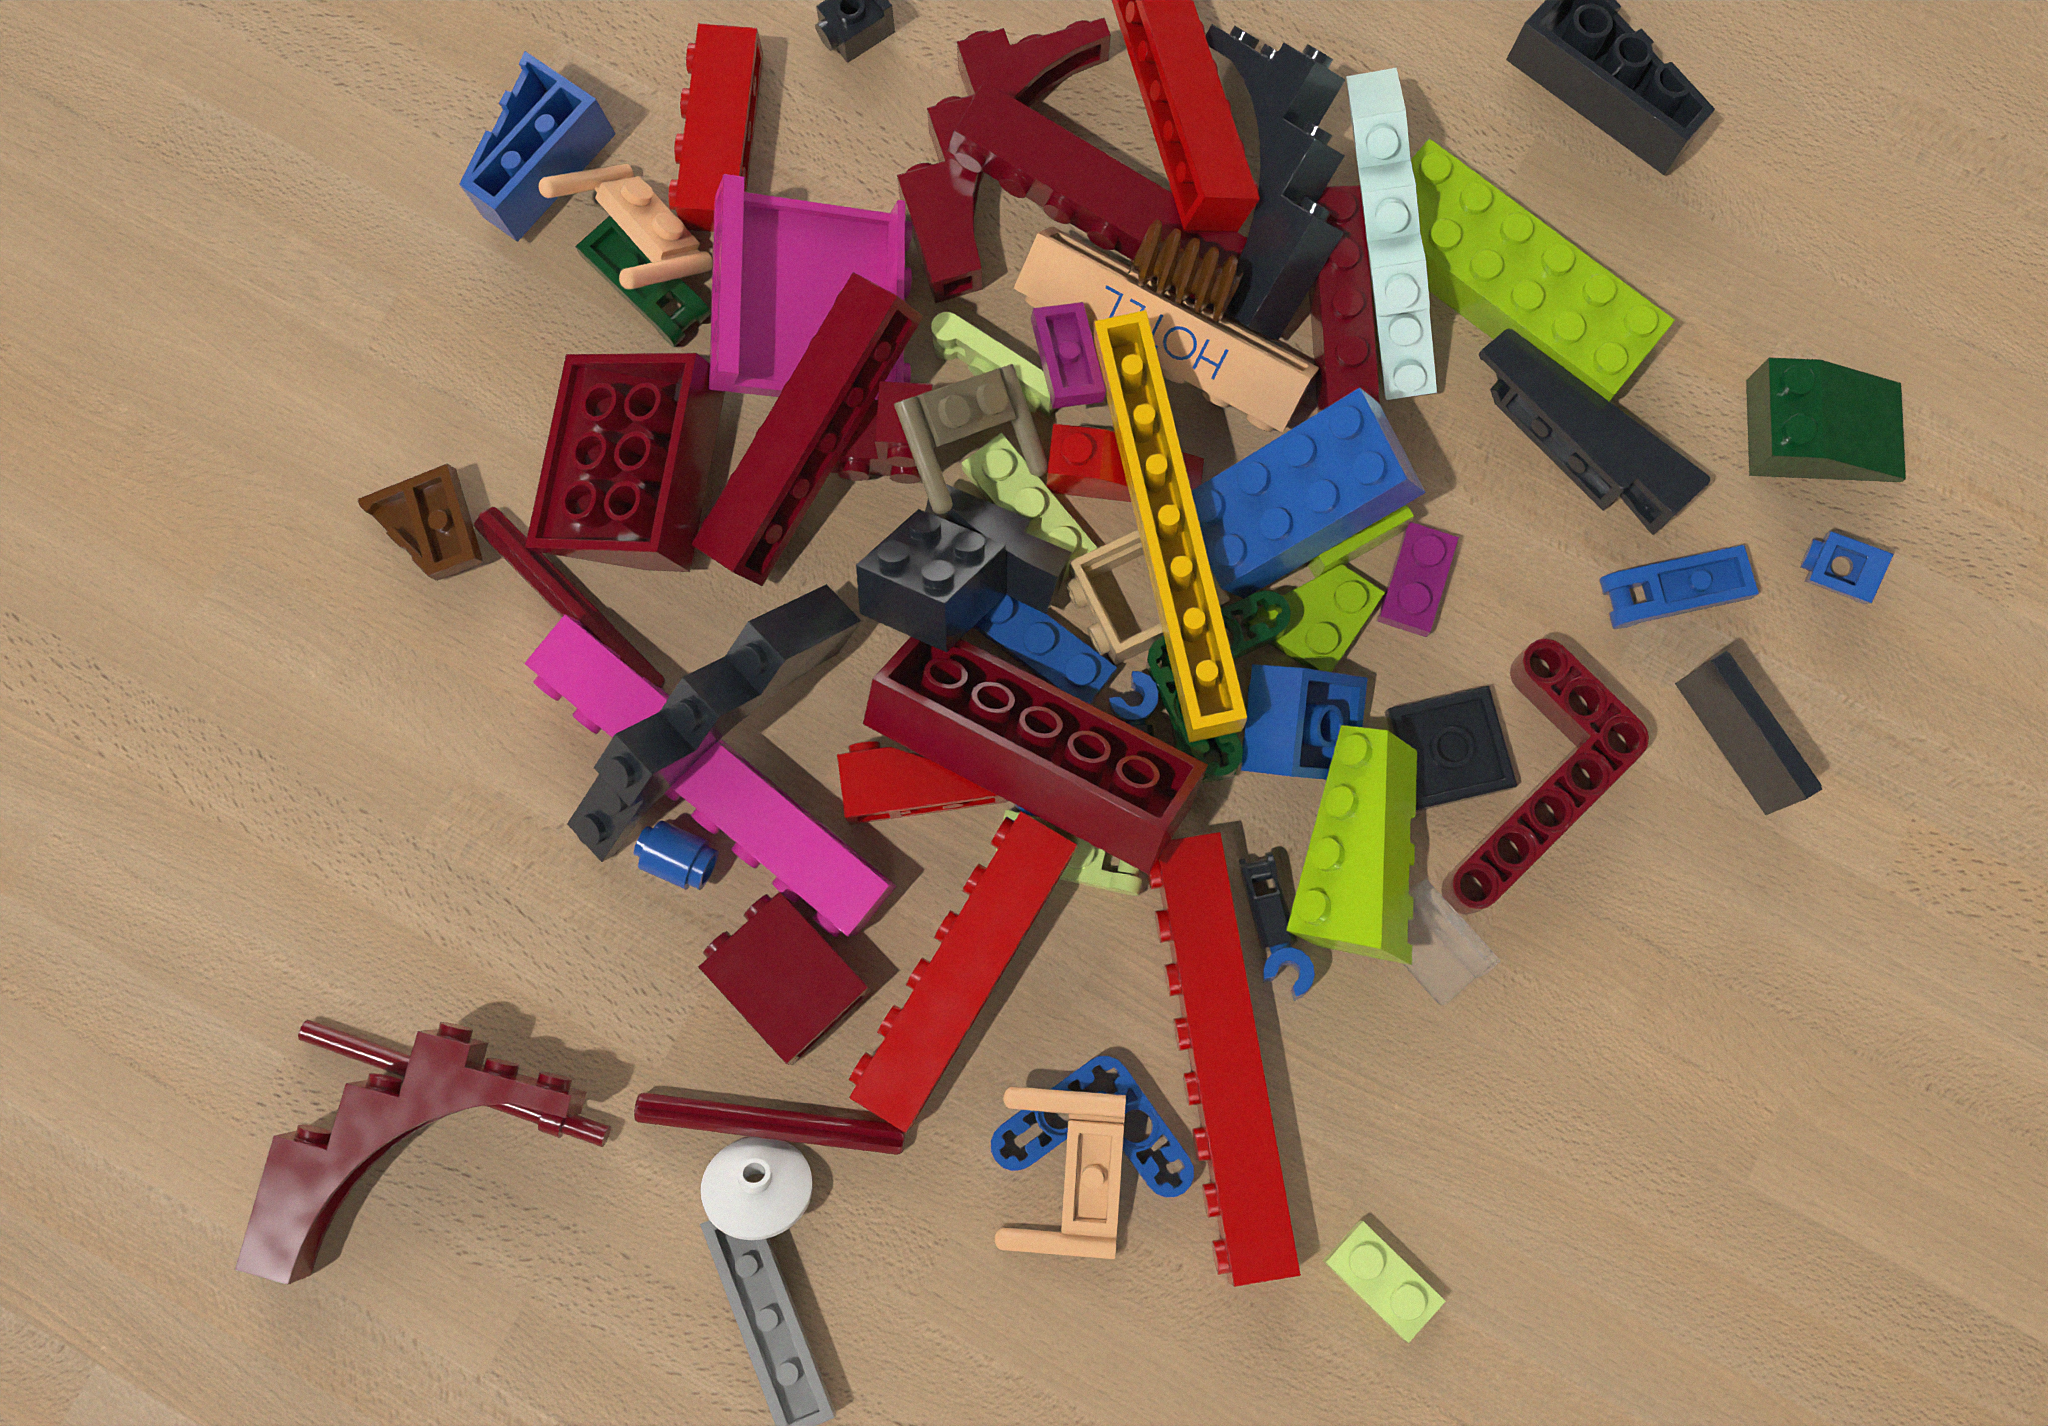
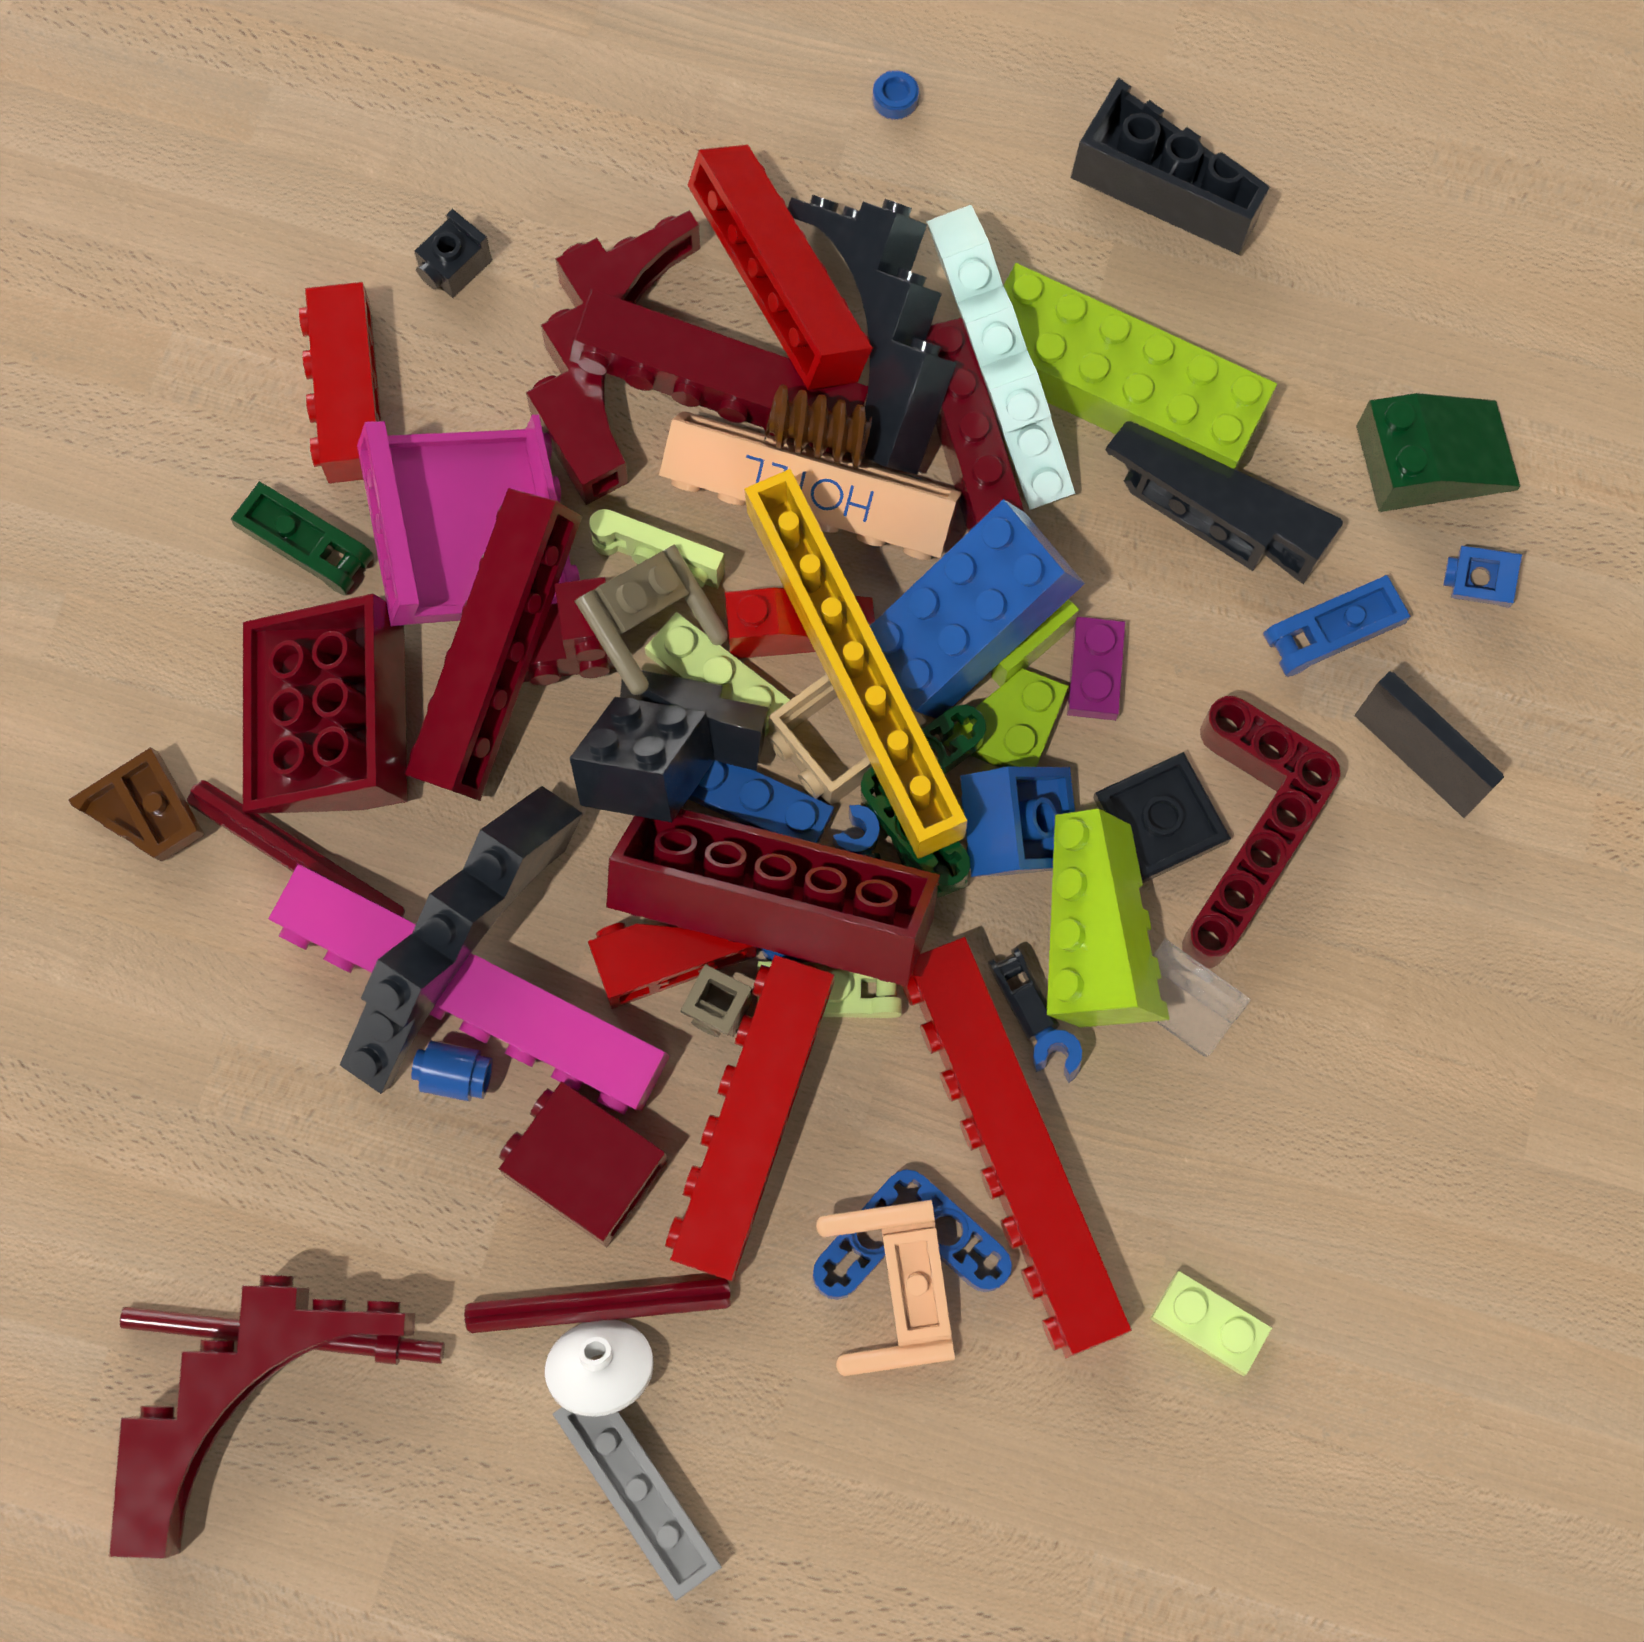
camera: 15 degrees left, 5 degrees down
(541, 133) = (172, 434): blue wedge -> none
(643, 219) = (289, 479): light nougat plate -> none
(953, 845) = (717, 1002): none -> dark tan brick
(1068, 355) = (725, 526): magenta plate -> none

